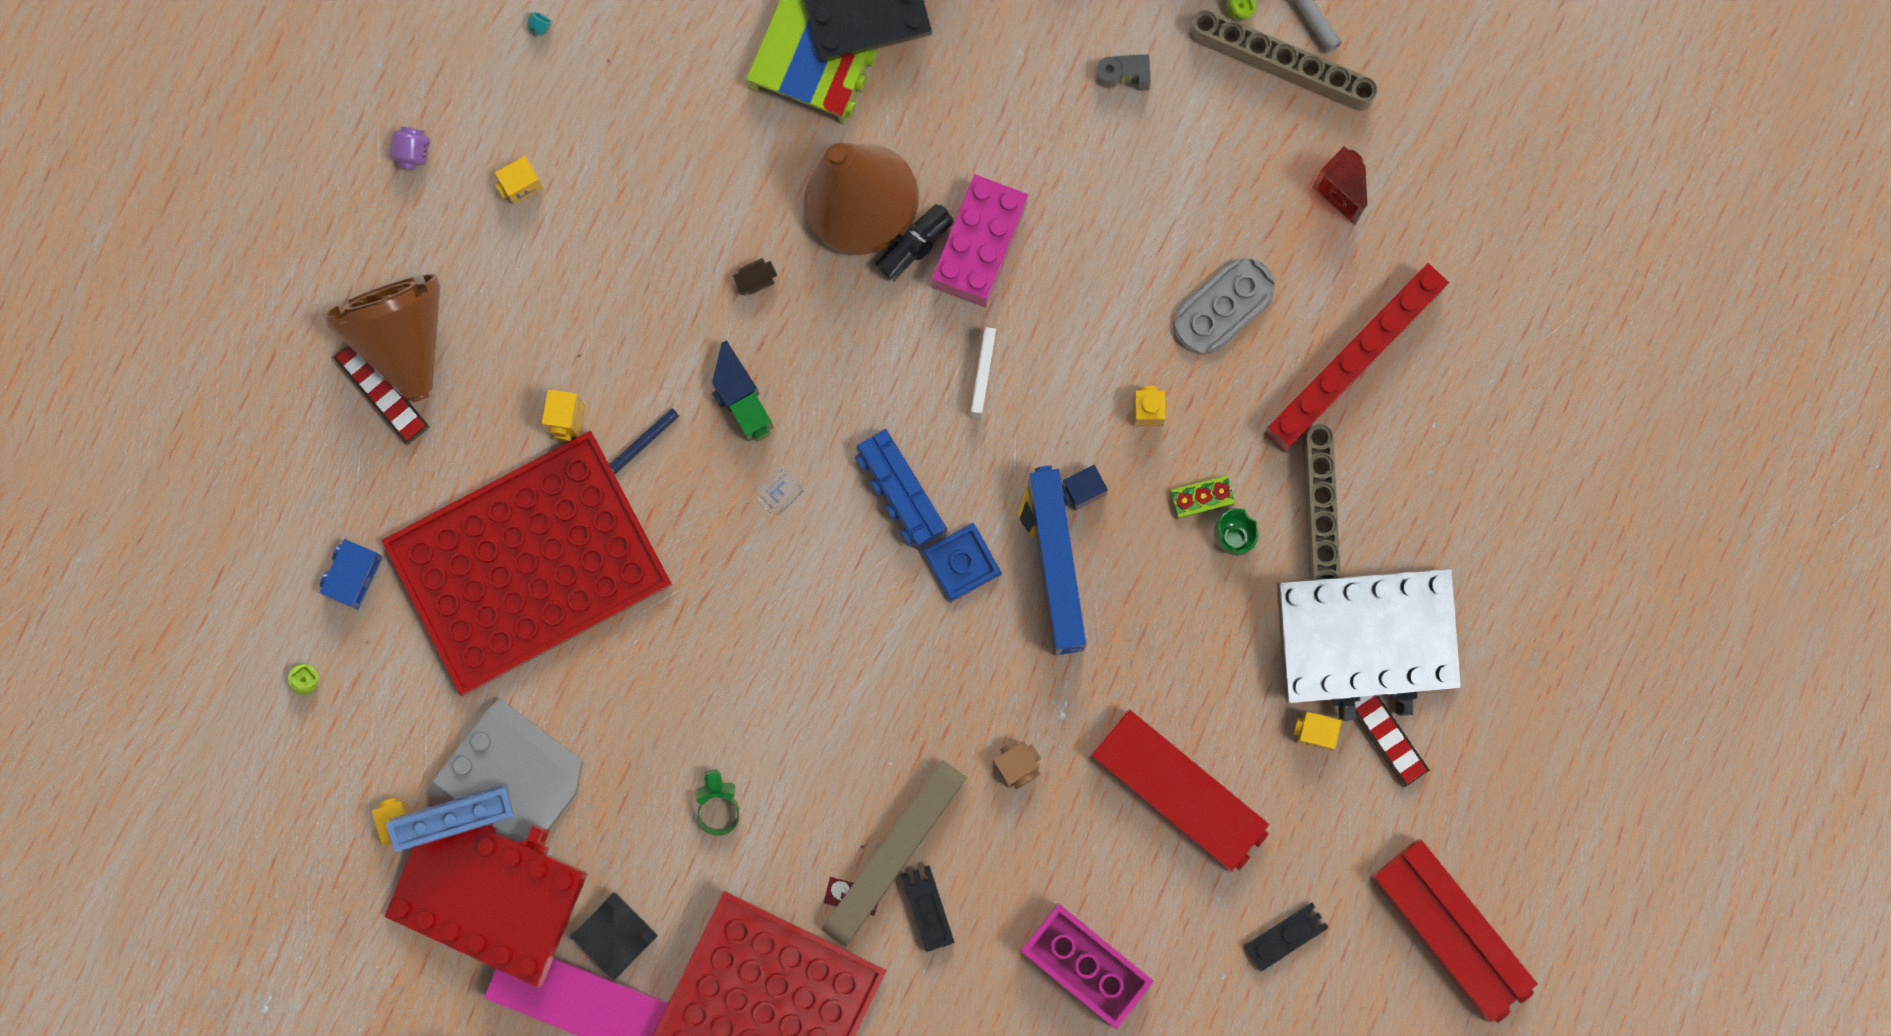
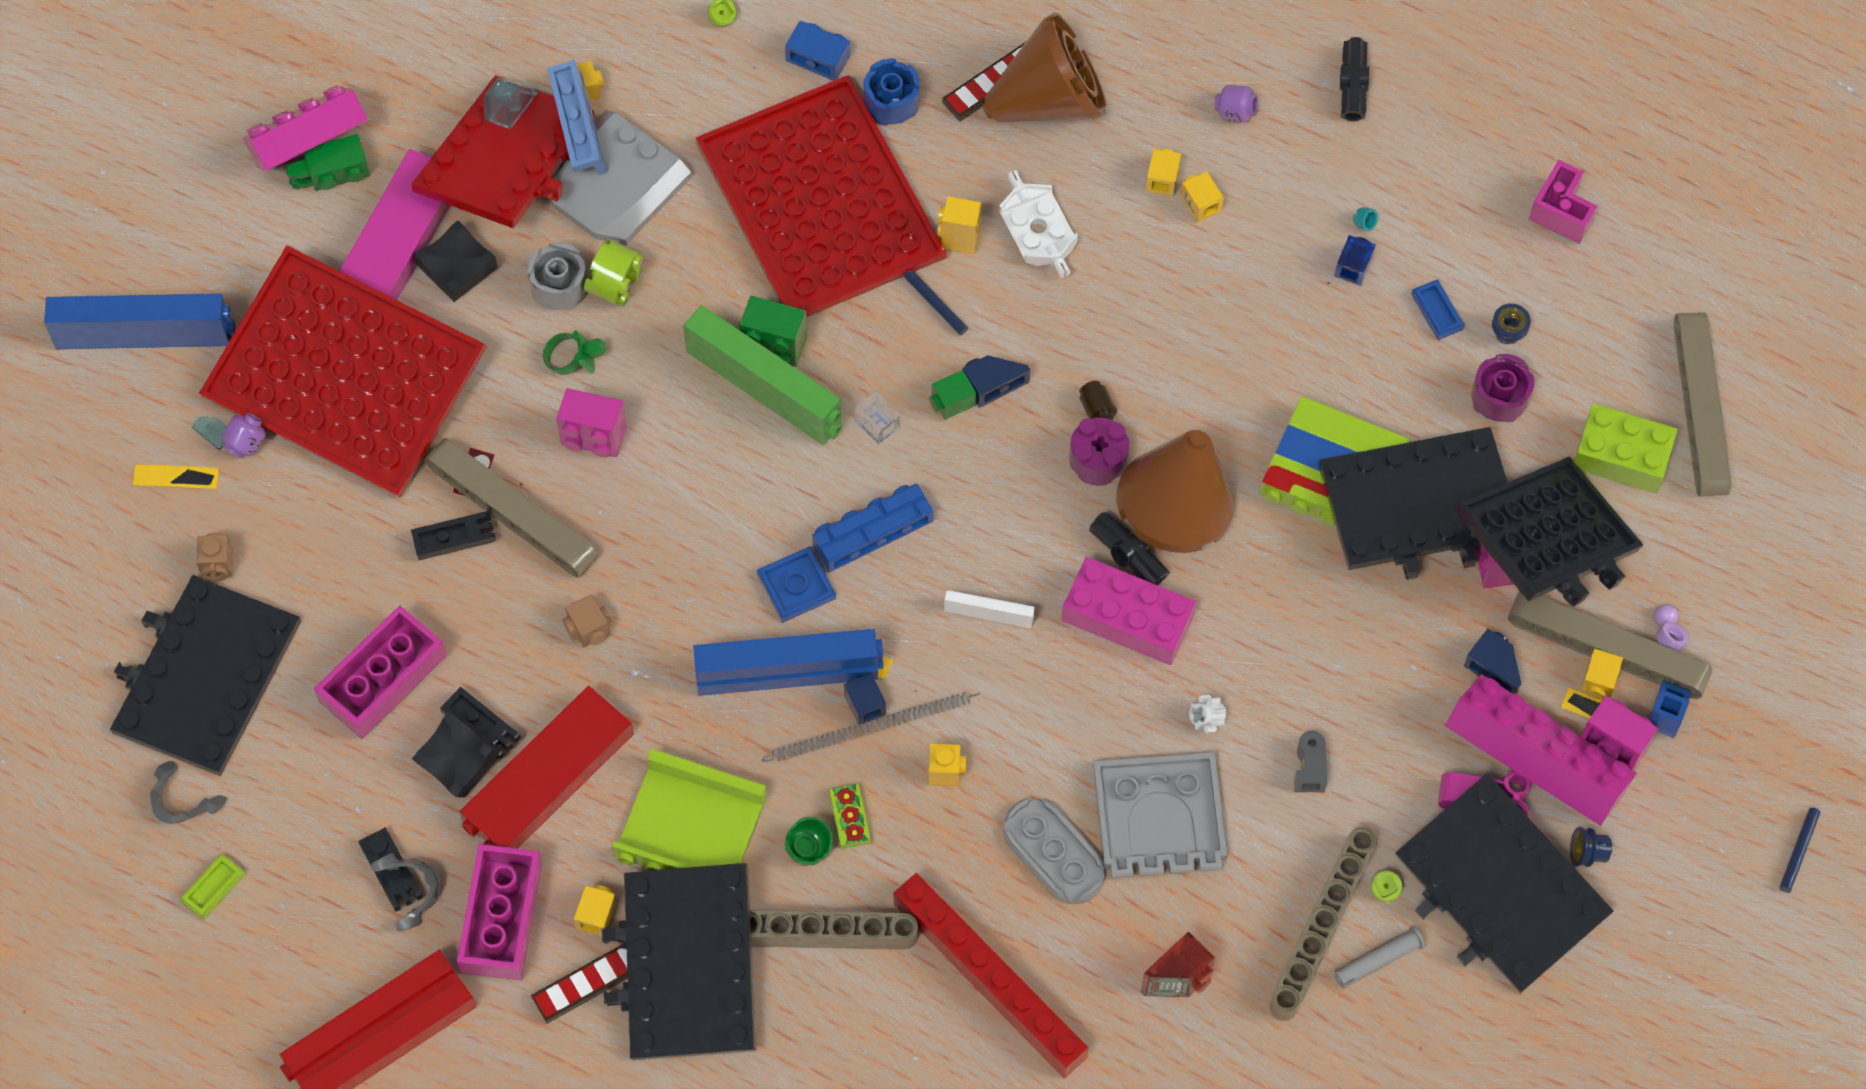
camera: 90 degrees right, 15 degrees down
(378, 32) = (1354, 79): none -> black piece
(387, 488) = (891, 91): none -> blue brick
(425, 894) = (507, 101): none -> clear light blue slope
(490, 218) = (1163, 172): none -> yellow brick
(531, 341) = (1036, 205): none -> white plate
(587, 31) = (1355, 260): none -> clear blue brick
(617, 835) = (557, 276): none -> light grey brick
(627, 767) = (613, 271): none -> lime brick
(692, 597) = (775, 327): none -> green brick
(743, 604) = (763, 375): none -> bright green brick
(798, 261) = (1113, 448): none -> magenta brick
(804, 775) = (591, 423): none -> dark pink brick
(1082, 165) = (1207, 713): none -> white gear
(1108, 483) = (870, 727): none -> light grey piece
(1129, 863) = (482, 719): none -> black hinge
(1170, 880) = (456, 754): none -> black brick
(1184, 208) = (1160, 814): none -> light grey hinge
(1220, 650) = (689, 816): none -> lime panel
(1285, 909) = (432, 878): none -> dark grey helmet
(1330, 822) = (499, 912): none -> dark pink brick

